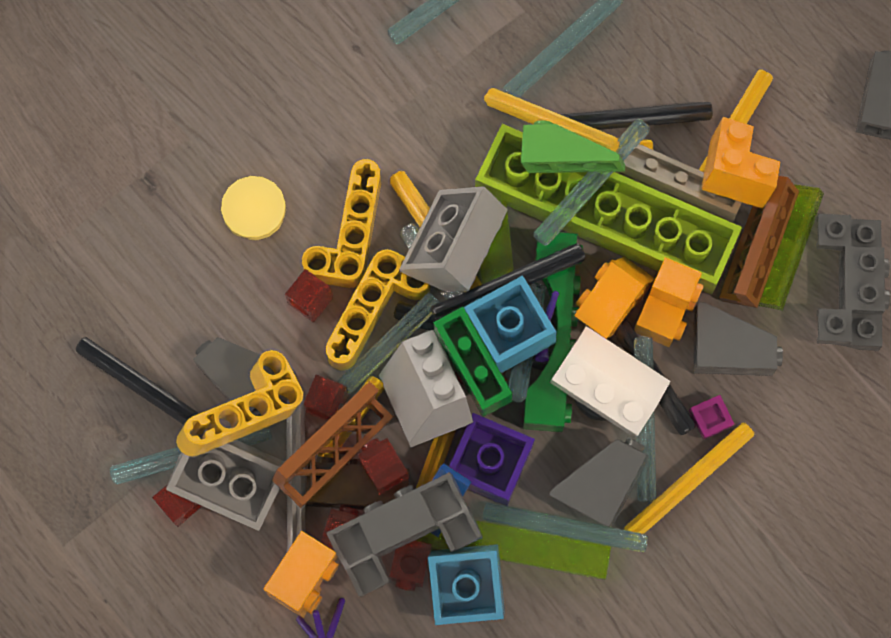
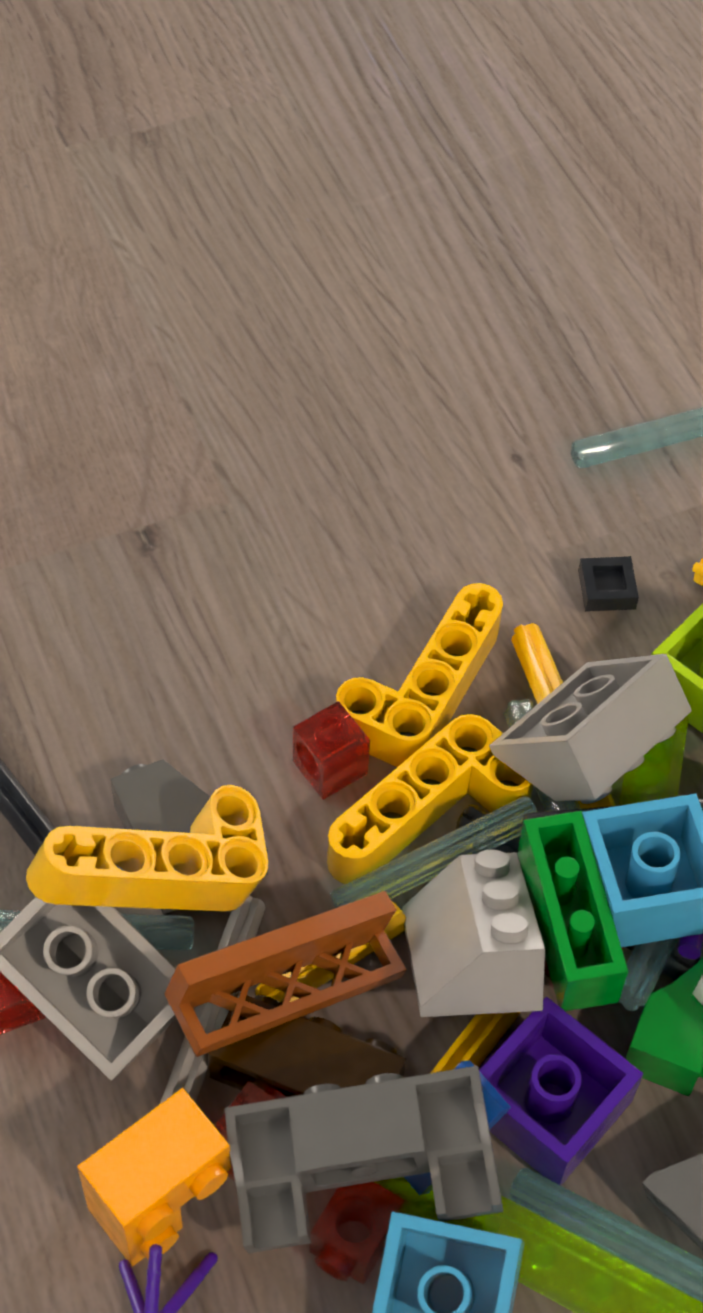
camera: 15 degrees right, 20 degrees down
(253, 208) = (289, 612): light yellow tile -> none
(325, 398) = (298, 896): clear red brick -> none
(382, 464) = (363, 1031): clear red brick -> none
(436, 127) = (608, 583): none -> black plate

